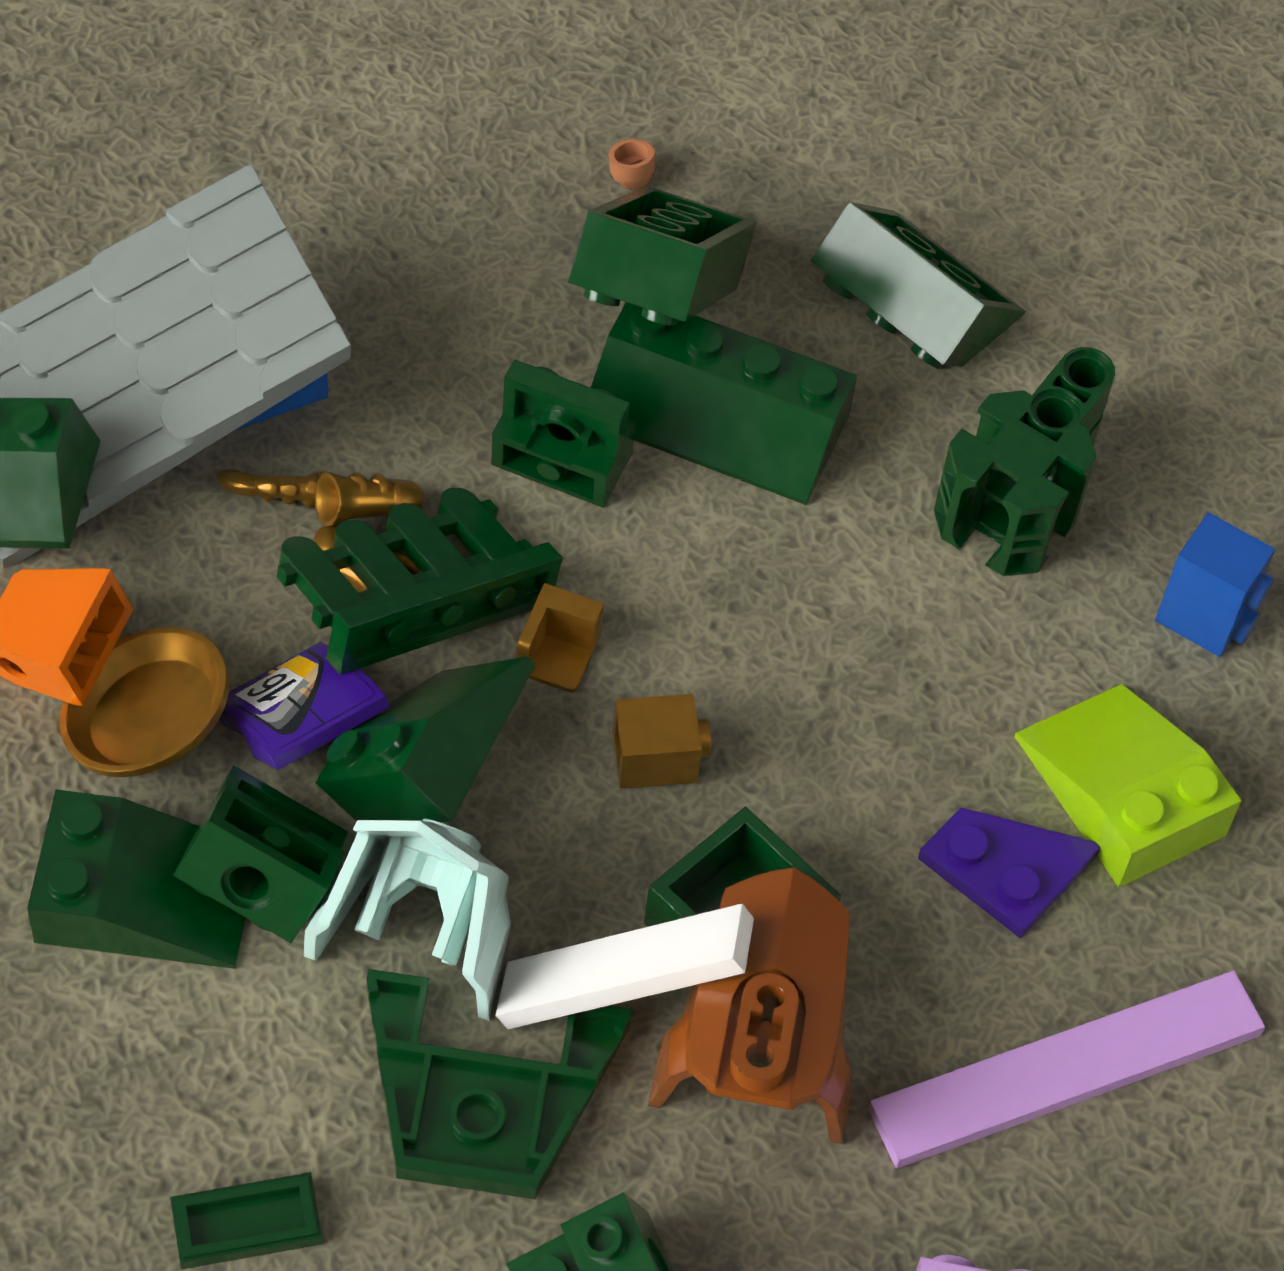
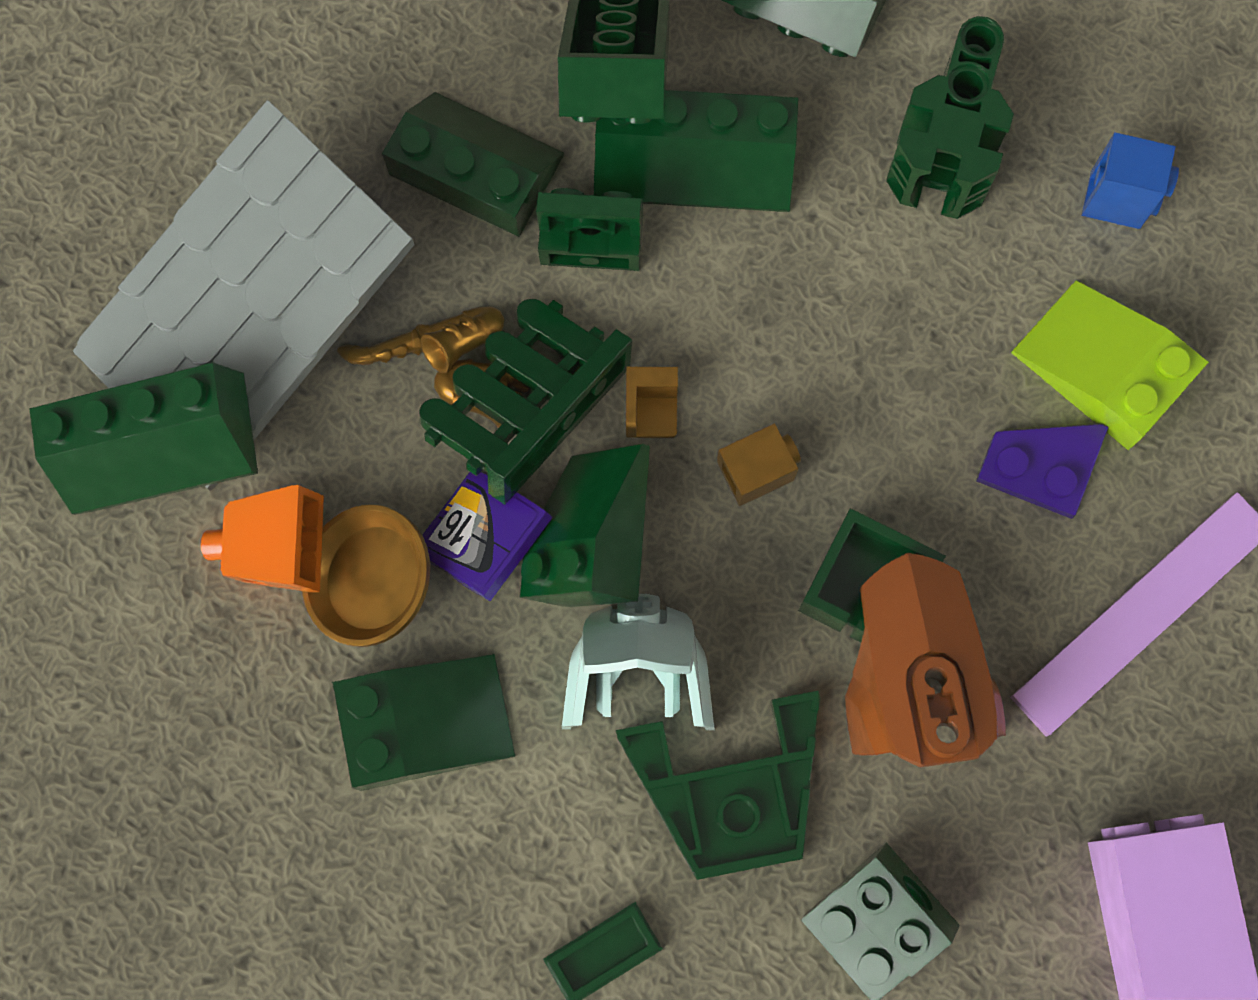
camera: 10 degrees left, 20 degrees up
(262, 855) = (505, 670): dark green brick -> none
(448, 329) = (471, 161): none -> dark green slope
(626, 966) = (811, 673): white tile -> none

